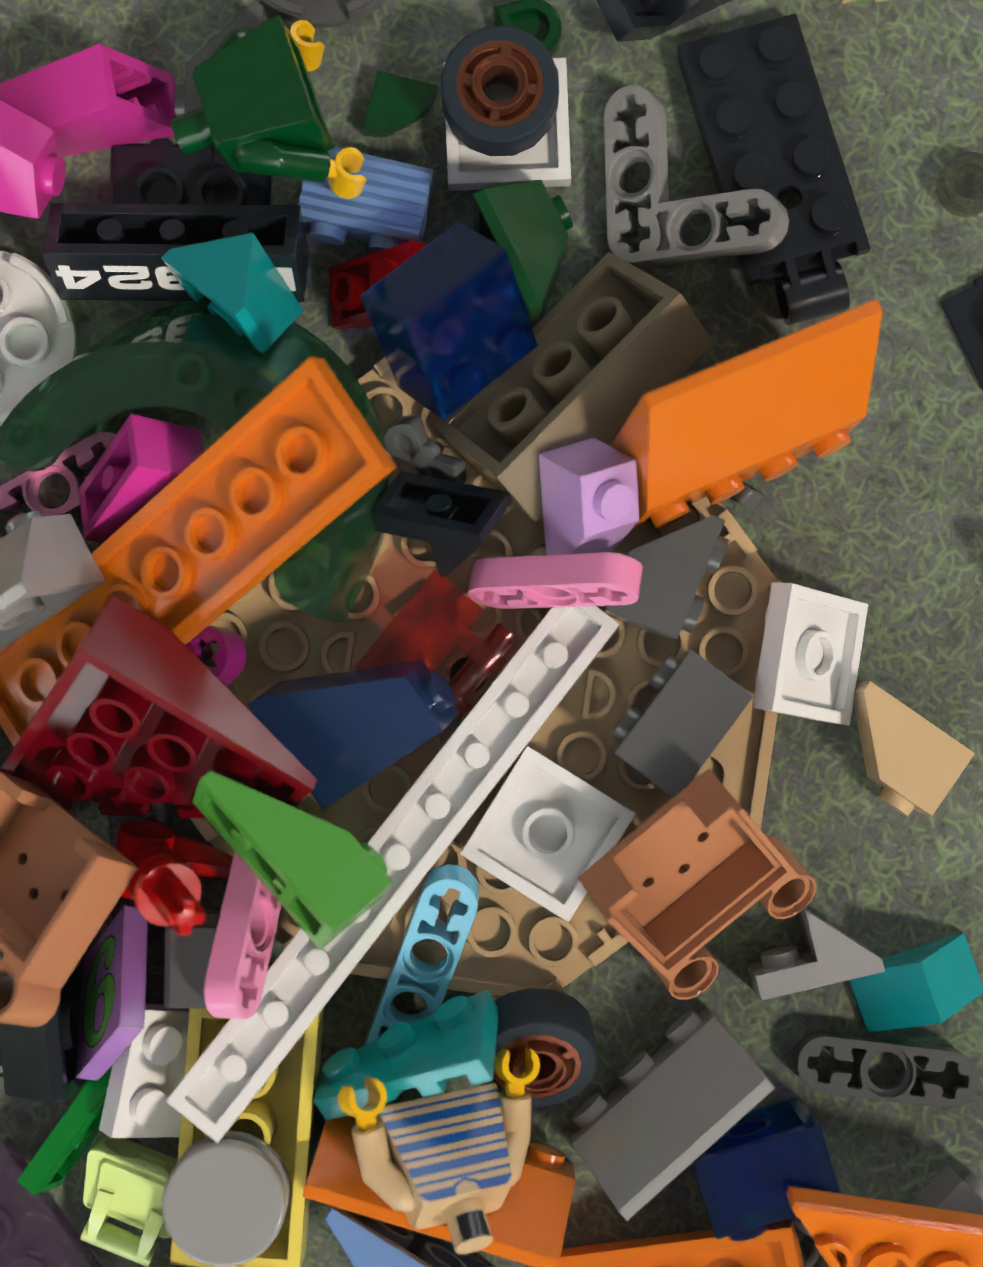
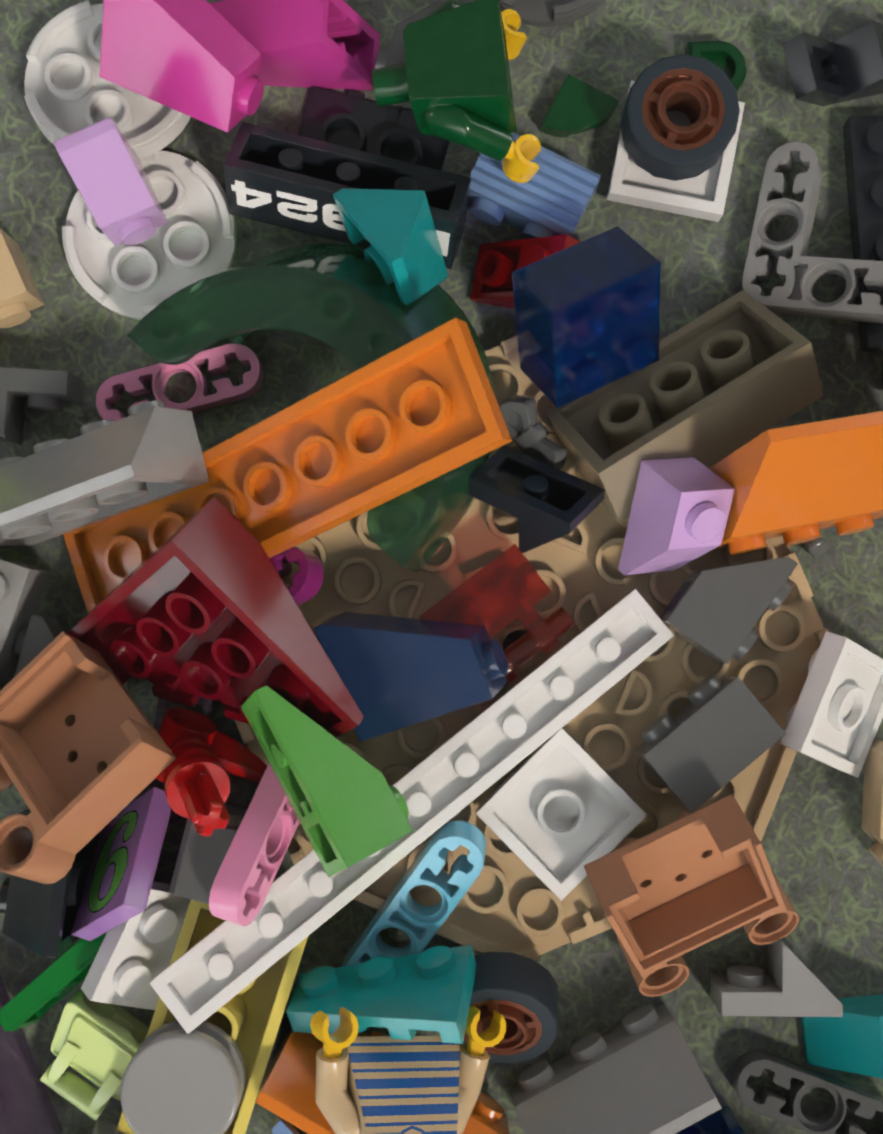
camera: 10 degrees right, 0 degrees up
(133, 471) = (259, 386): dark pink brick -> none
(533, 233) = (683, 248): dark green slope -> none
(556, 580) = (628, 582): bright pink beam -> none

